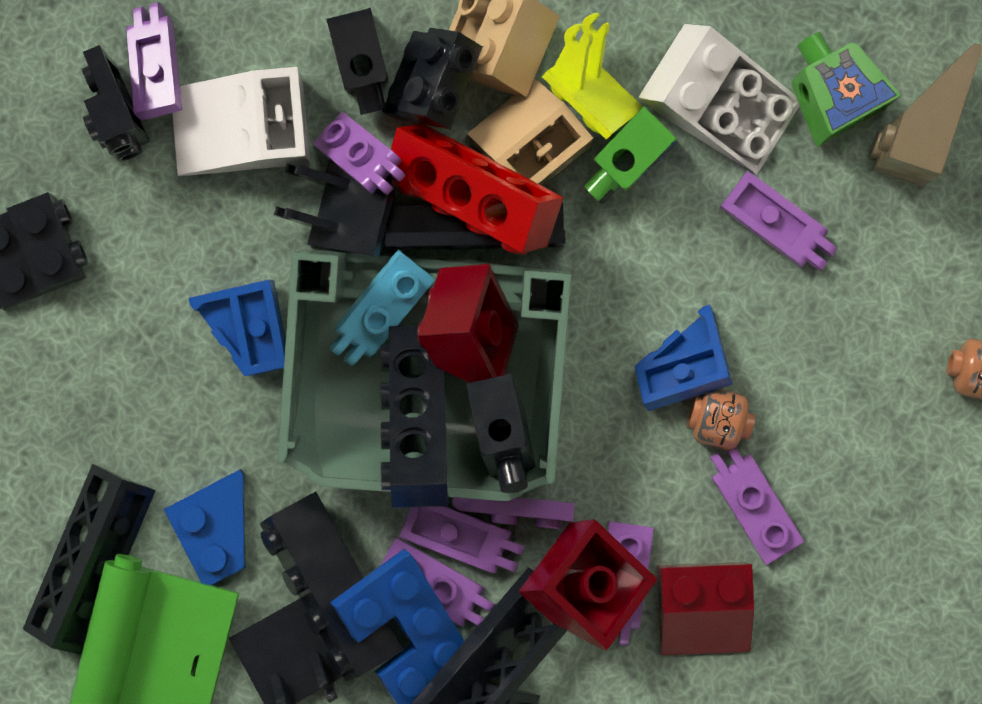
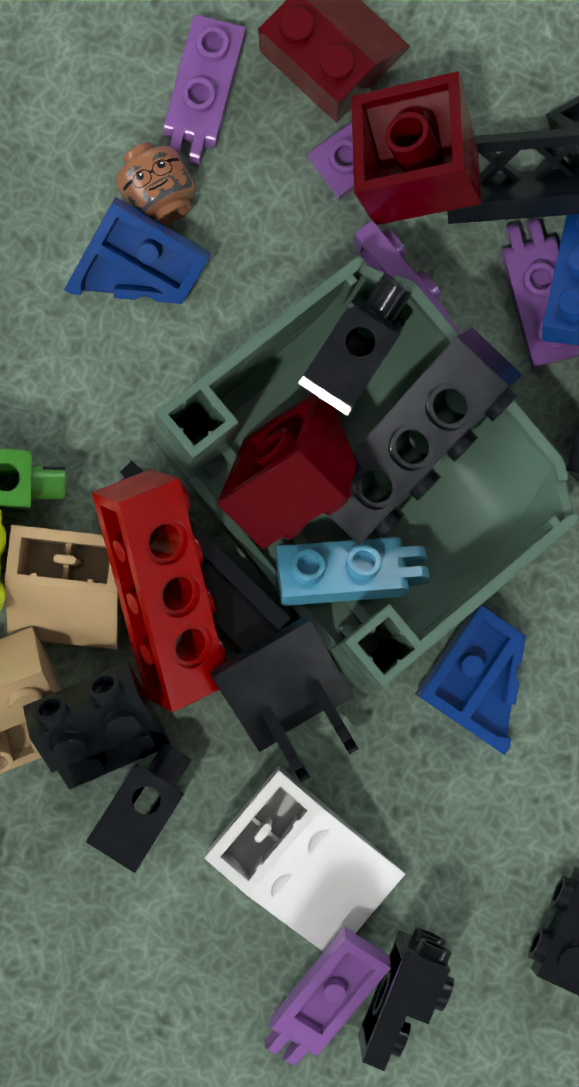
camera: 130 degrees left, 0 degrees up
(359, 154) = (229, 724): medium lavender hinge -> none
(460, 537) = (476, 300): medium lavender hinge -> none

